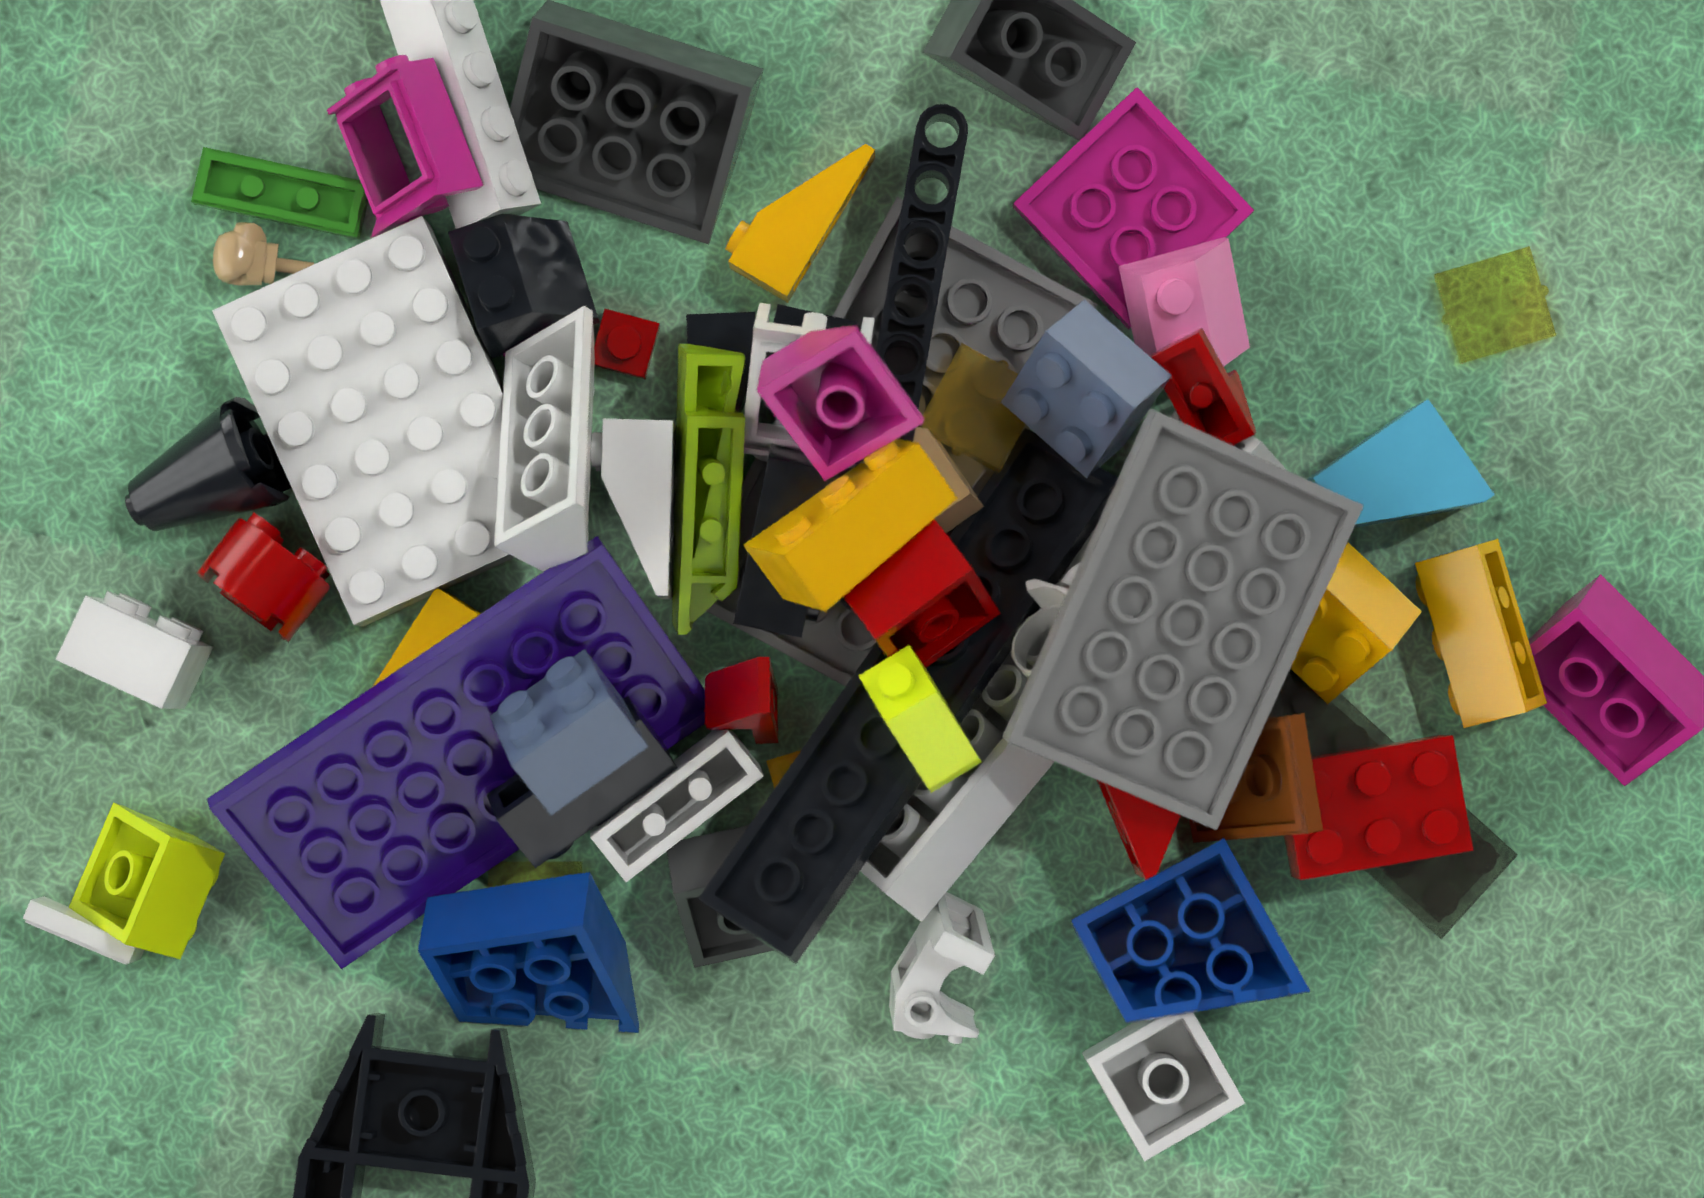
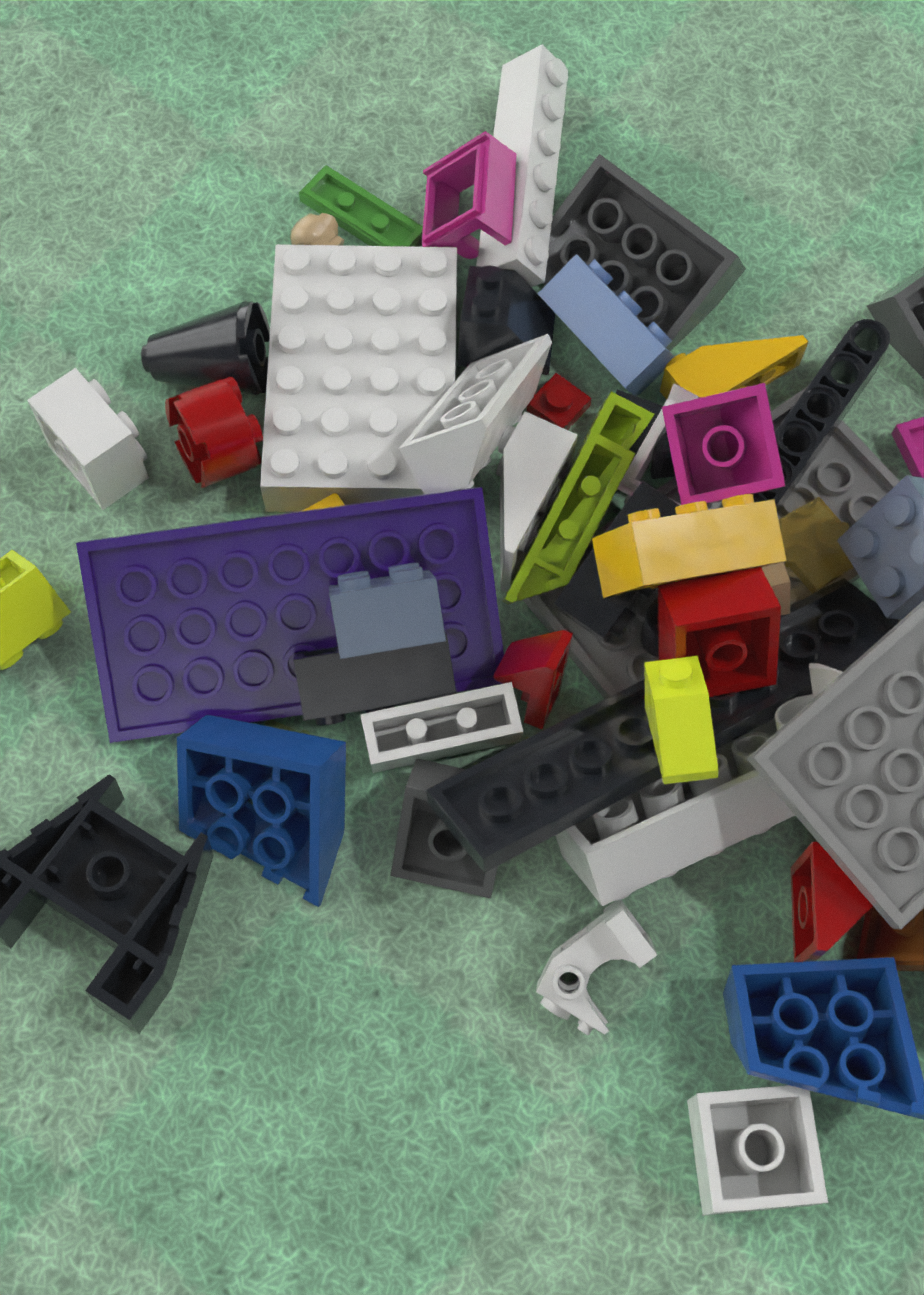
camera: 25 degrees right, 20 degrees down
(637, 227) = (608, 324): none -> medium blue brick

